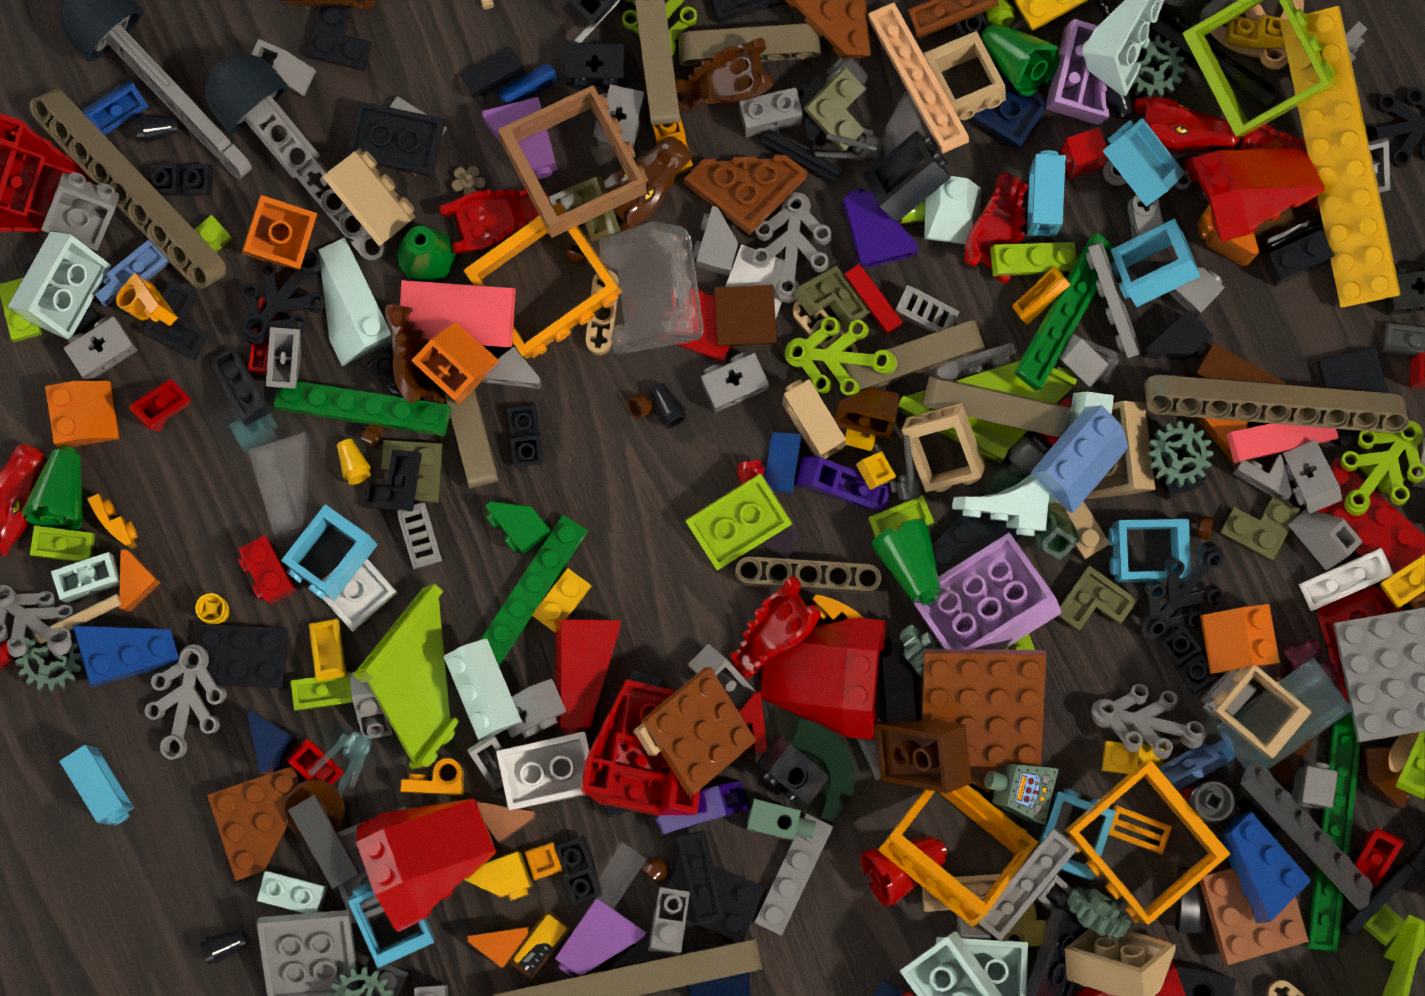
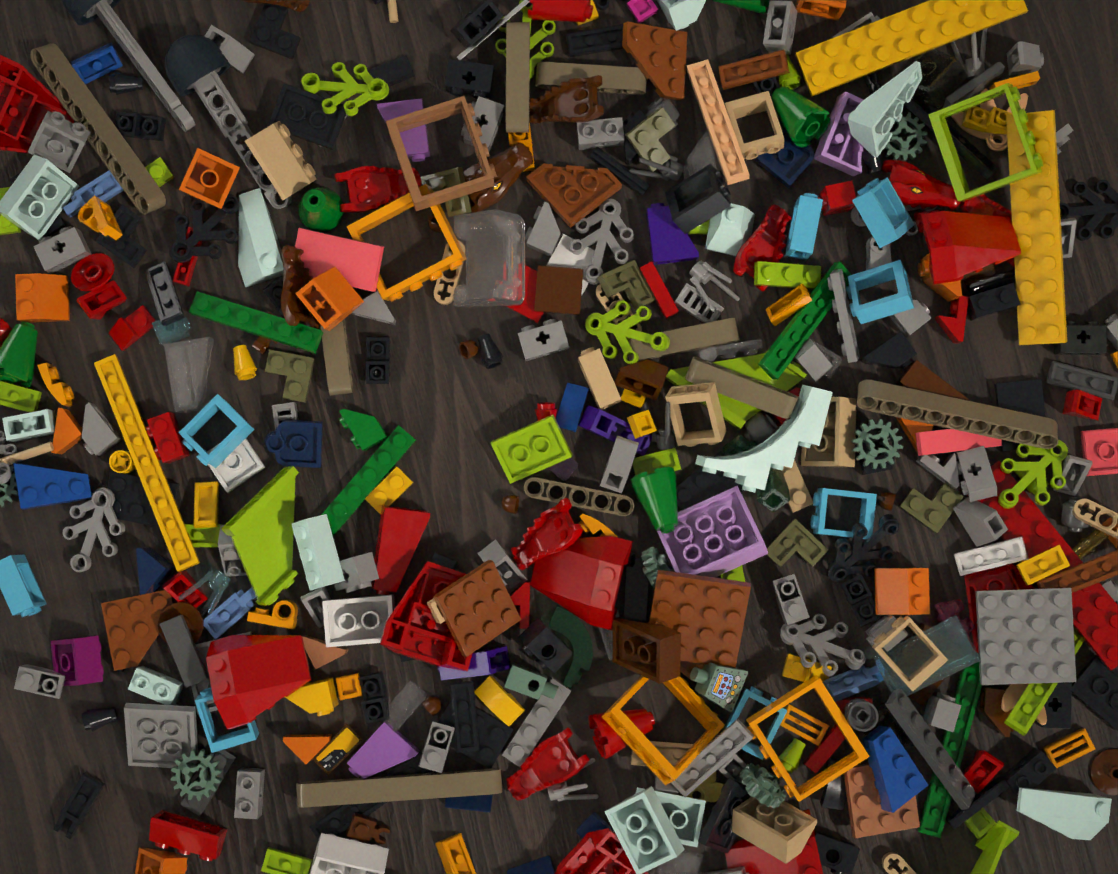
camera: 15 degrees right, 5 degrees up
(140, 907) = (39, 681): none -> light grey slope
(143, 371) = (92, 272): none -> red dish
(175, 575) = (98, 431): none -> light grey slope
(184, 875) = (78, 660): none -> magenta slope
(202, 437) = (131, 328): none -> red slope
(245, 606) = (147, 463): none -> yellow plate
(283, 357) = (200, 276): light grey slope -> none
(376, 785) = (229, 612): none -> medium blue hinge
(399, 489) = (276, 388): black plate -> none
(435, 555) = (297, 443): none -> dark blue plate
(467, 181) = (359, 156): dark tan plant -> none
(476, 93) = (374, 90): none -> lime plant
(528, 85) = (416, 87): blue slope -> none
(721, 596) = (510, 504): none -> reddish brown hinge
(741, 852) = (499, 701): none -> yellow slope
(817, 926) = (548, 765): none -> red animal
(834, 956) = (561, 791): none -> light grey plant
(854, 525) = (619, 464): none -> light grey slope
(926, 270) = (704, 273): none -> light grey plant
(1082, 456) = (800, 437): medium blue slope -> none
(1097, 669) = (790, 599): none -> light grey slope
(1131, 870) = (792, 755): none -> lime cone
(1171, 857) = (825, 749): none -> red piece
(1254, 294) = (955, 325): none -> red slope

